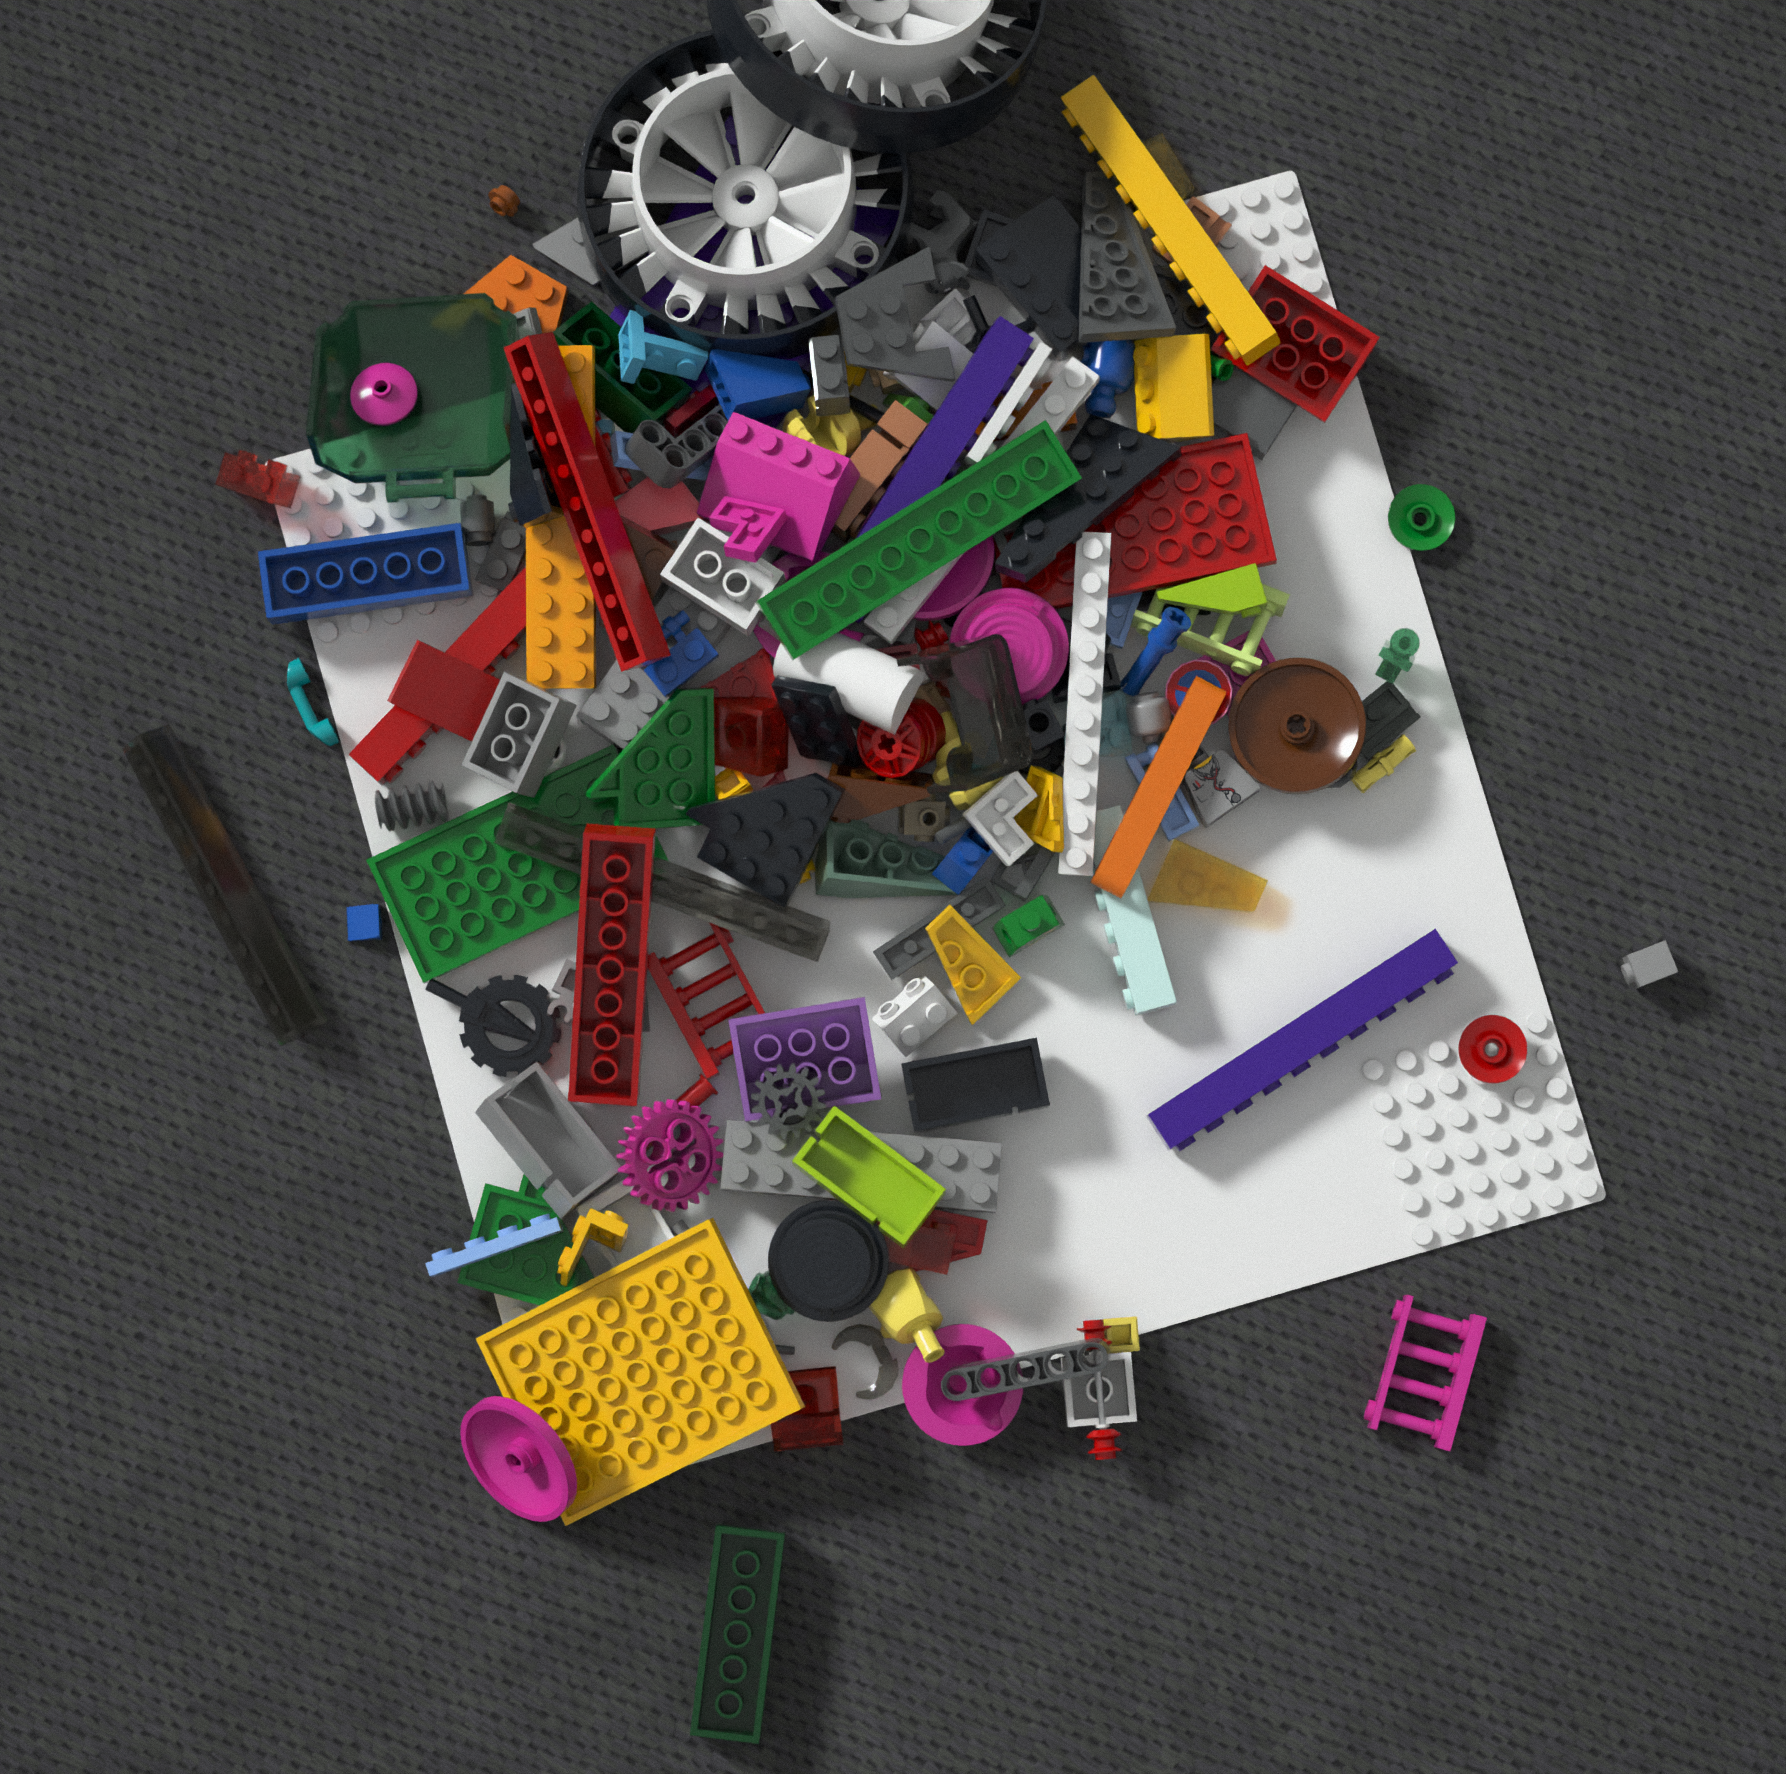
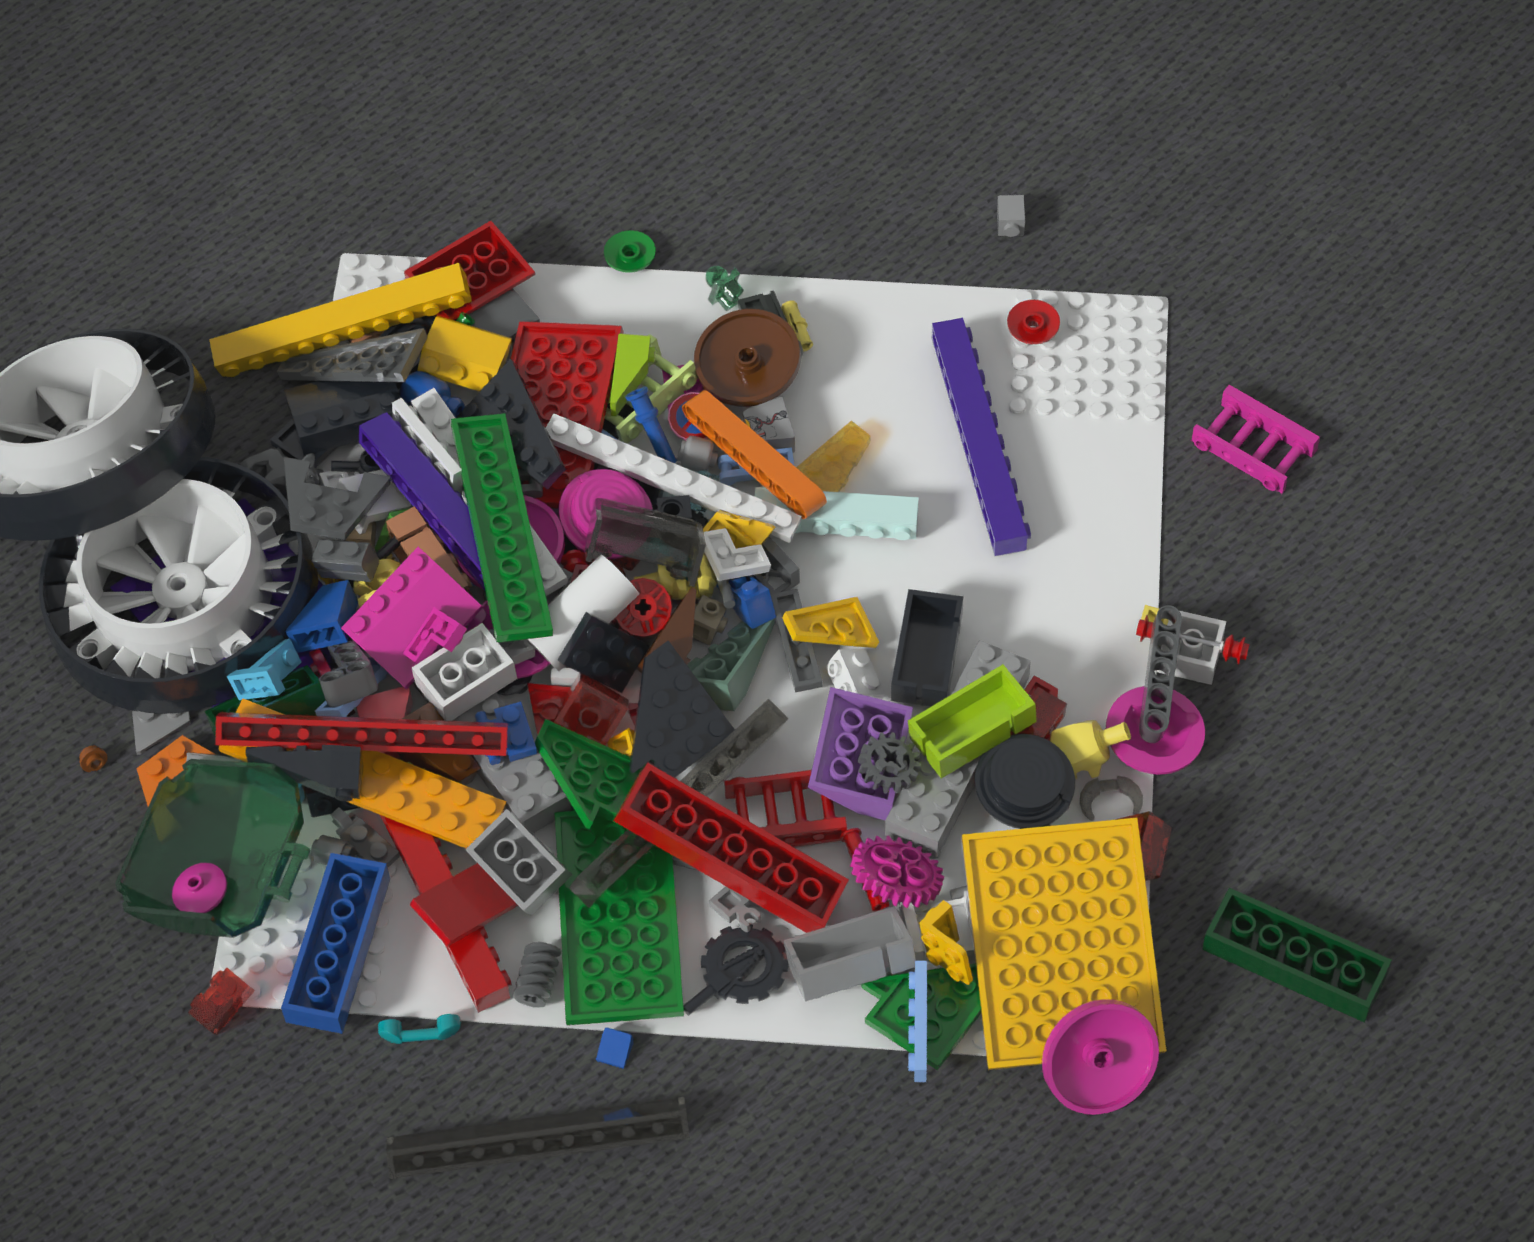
camera: 70 degrees left, 25 degrees down
(1027, 925) = (817, 570): green torso -> none

